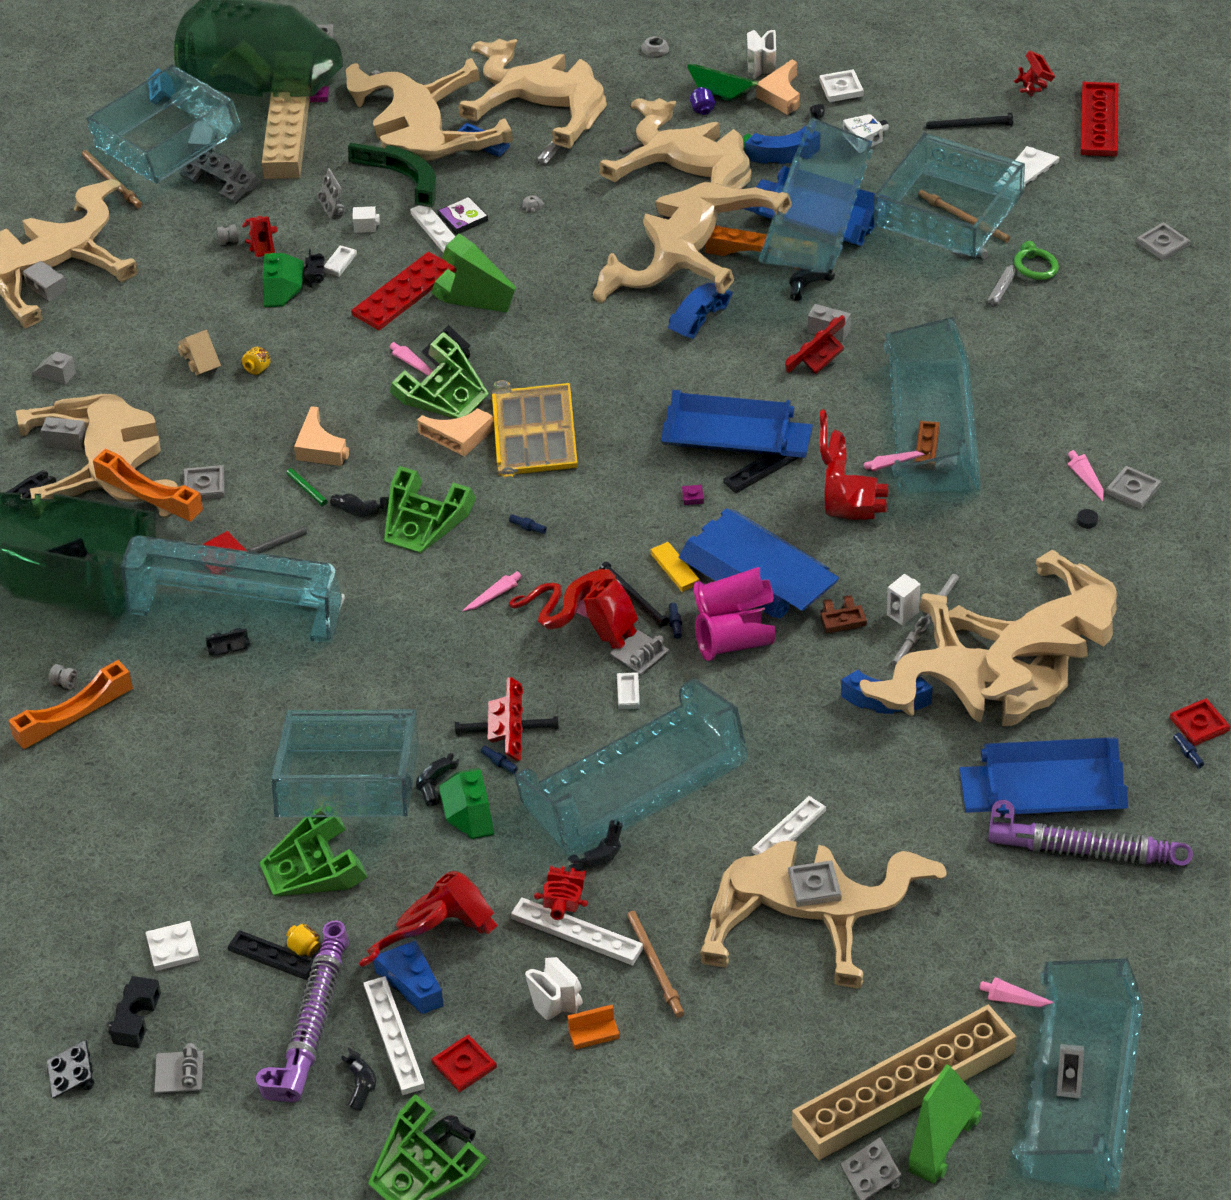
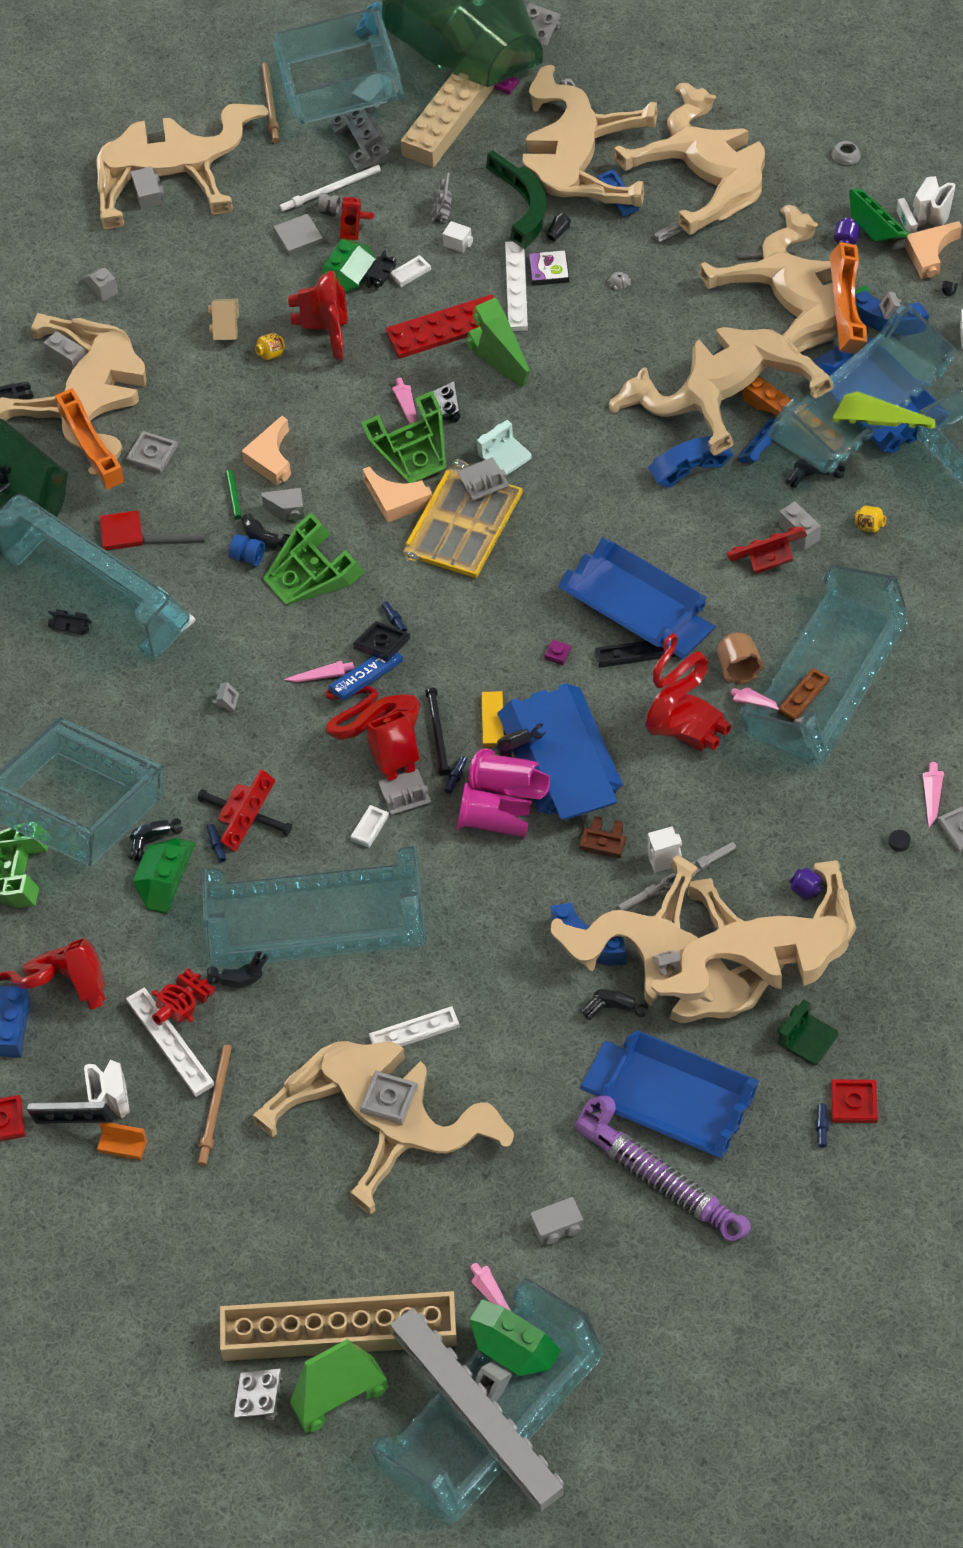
camera: 30 degrees right, 10 degrees up
(197, 242) = (298, 201): none -> white bar
(214, 268) = (298, 234): none -> light grey tile
(294, 307) = (322, 309): none -> red hips
(355, 522) = (248, 550): none -> blue wheel
(362, 474) = (284, 503): none -> light grey slope
(421, 643) = (226, 697): none -> light grey tile
(449, 181) = (558, 226): none -> black cone
(527, 363) = (503, 448): none -> light aqua bracket
(531, 387) = (483, 478): none -> light grey hinge
(532, 544) = (381, 641): none -> black tile
(533, 1021) = (70, 1112): none -> black tile
(537, 574) = (363, 676): none -> blue tile
(717, 565) = (513, 740): none -> black arm
(729, 118) = (851, 330): none -> orange arch
(739, 69) = (906, 216): none -> white tile
(747, 274) = (757, 445): none -> blue plate
(787, 134) = (889, 304): none -> light grey tile
(830, 211) = (871, 410): none -> lime wedge
(859, 435) = (739, 658): none -> medium nougat cylinder
(883, 297) = (870, 519): none -> yellow head
(941, 731) = (610, 998): none -> black arm
(977, 673) = (670, 957): none -> light grey tile
(1028, 917) = (557, 1221): none -> light grey brick
(1038, 578) = (806, 883): none -> dark purple head
(1065, 1017) = (512, 1340): none -> green wedge
(1081, 1083) = (477, 1410): none -> light grey brick
(1125, 690) = (806, 1034): none -> dark green bracket

